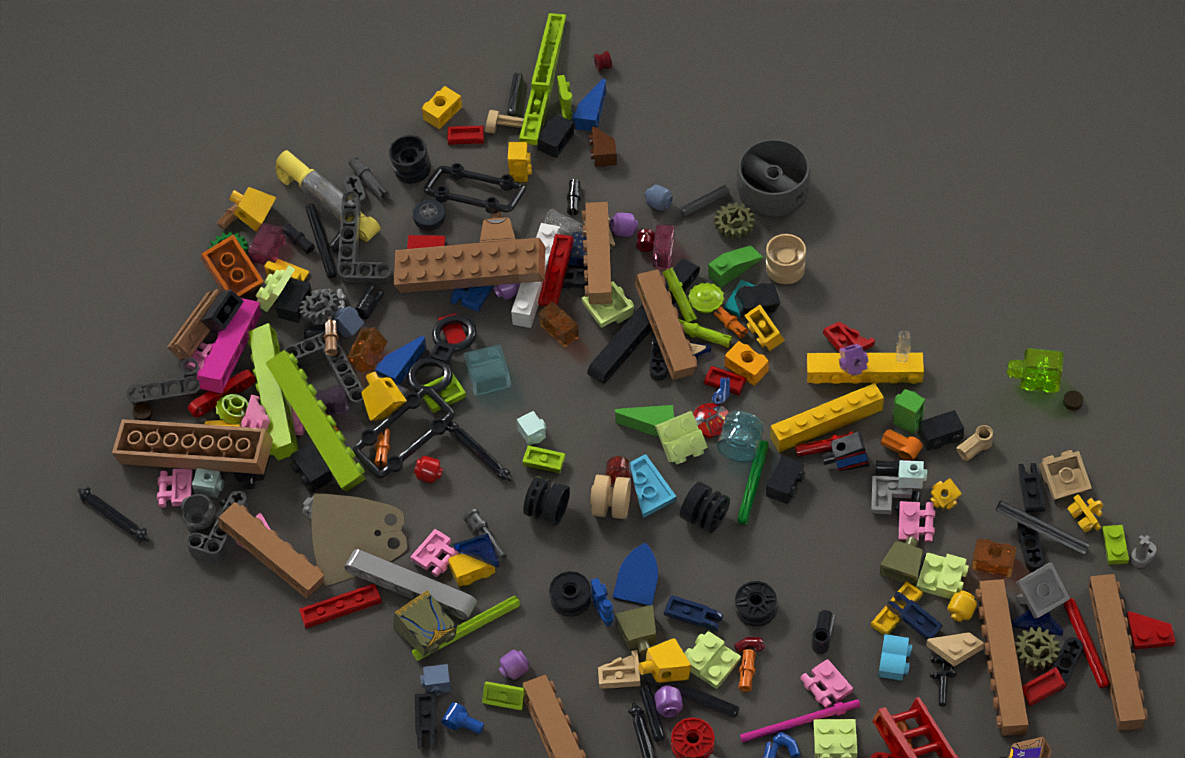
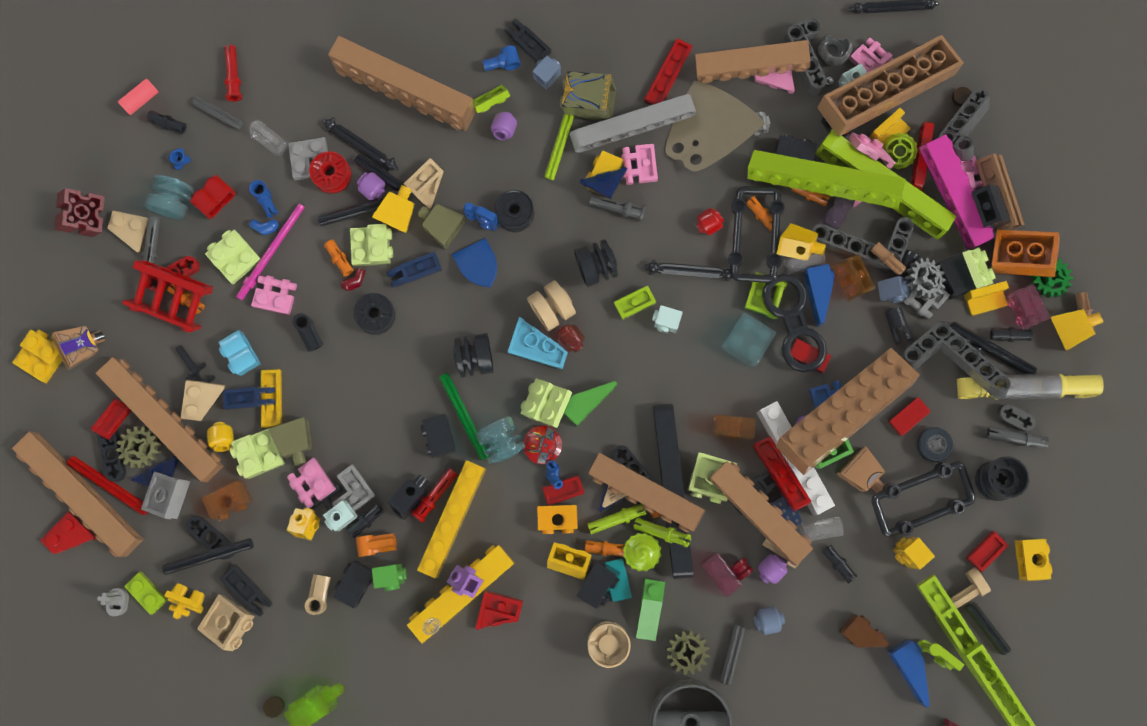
camera: 135 degrees right, 25 degrees up
(555, 135) = (913, 613): black brick -> none

